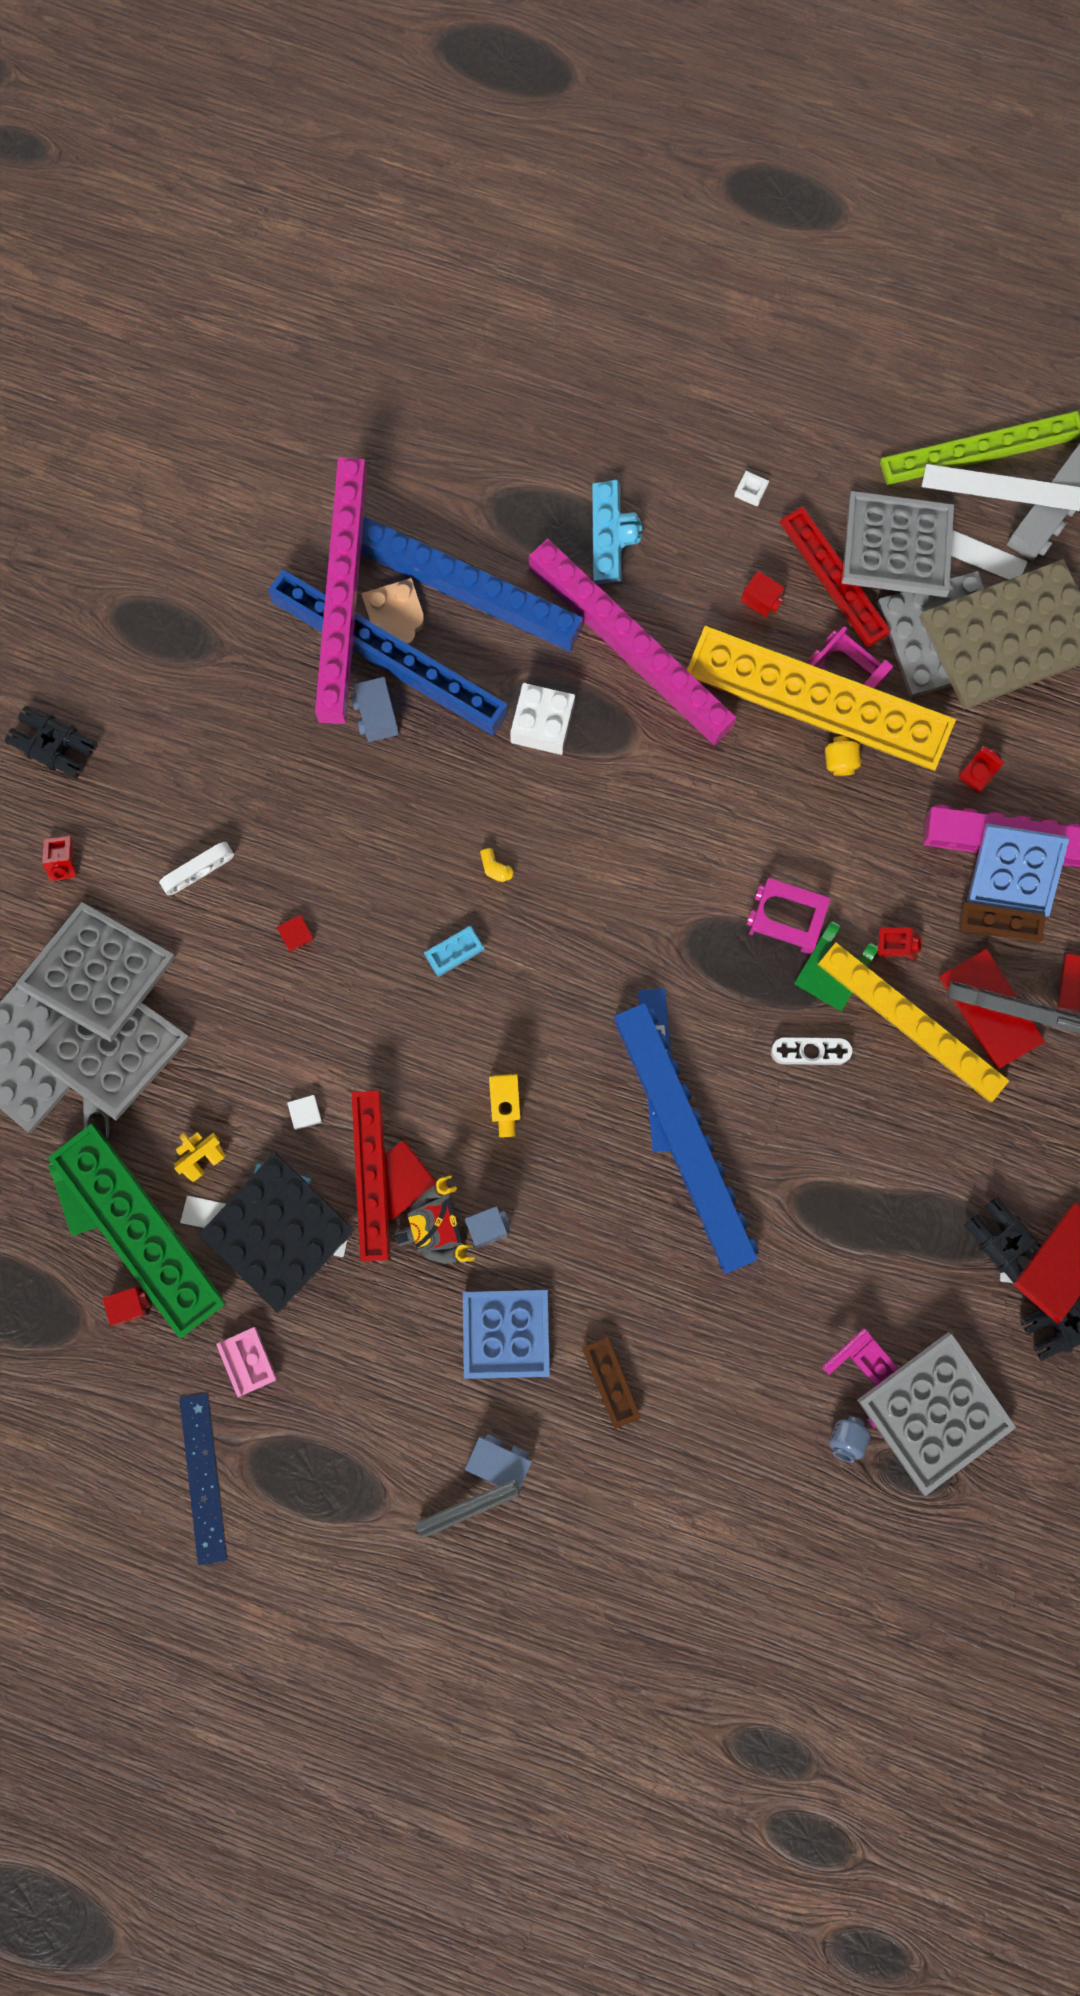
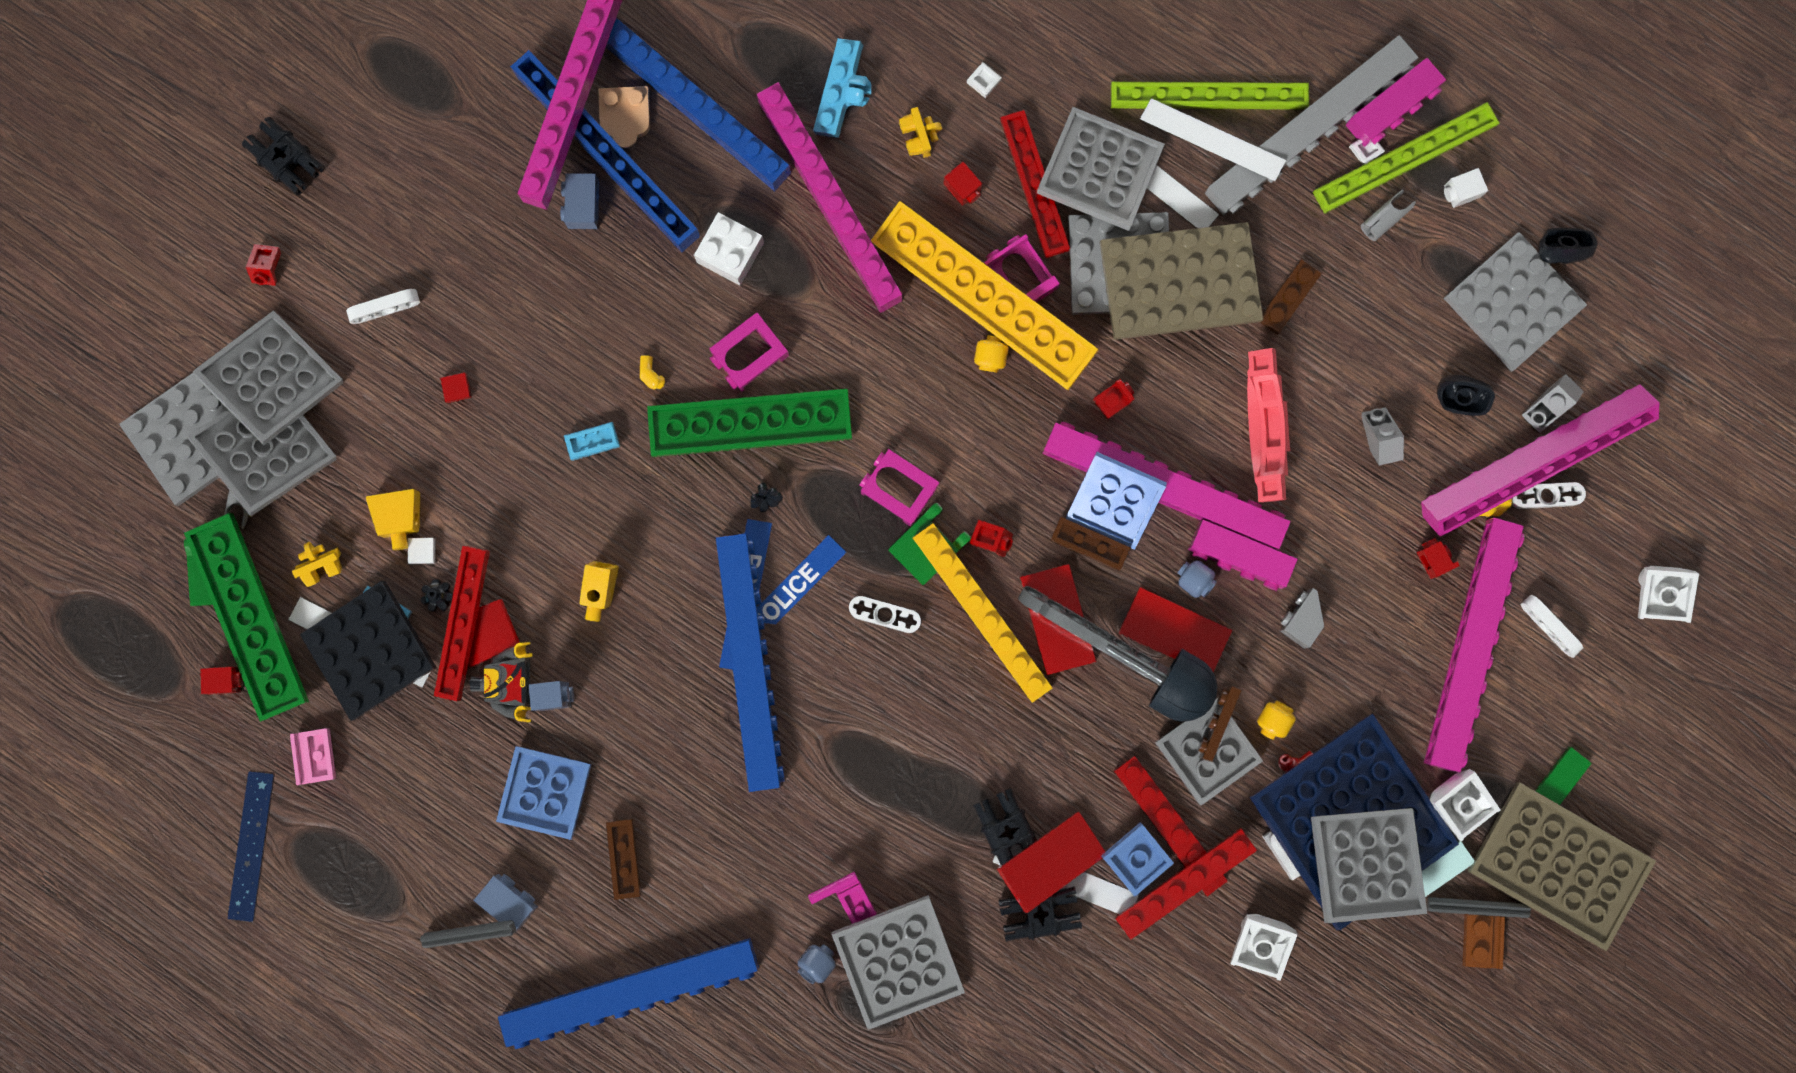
camera: 15 degrees right, 5 degrees up
(268, 1081) = (395, 515): none -> yellow torso
(336, 1159) = (436, 595): none -> black plant
(592, 846) = (745, 376): none -> dark pink panel
(613, 890) = (749, 422): none -> green plate
(652, 961) = (765, 497): none -> black plant
(657, 1526) = (628, 992): none -> blue brick
(706, 551) = (914, 123): none -> yellow hips
(712, 1038) = (801, 580): none -> blue sticker

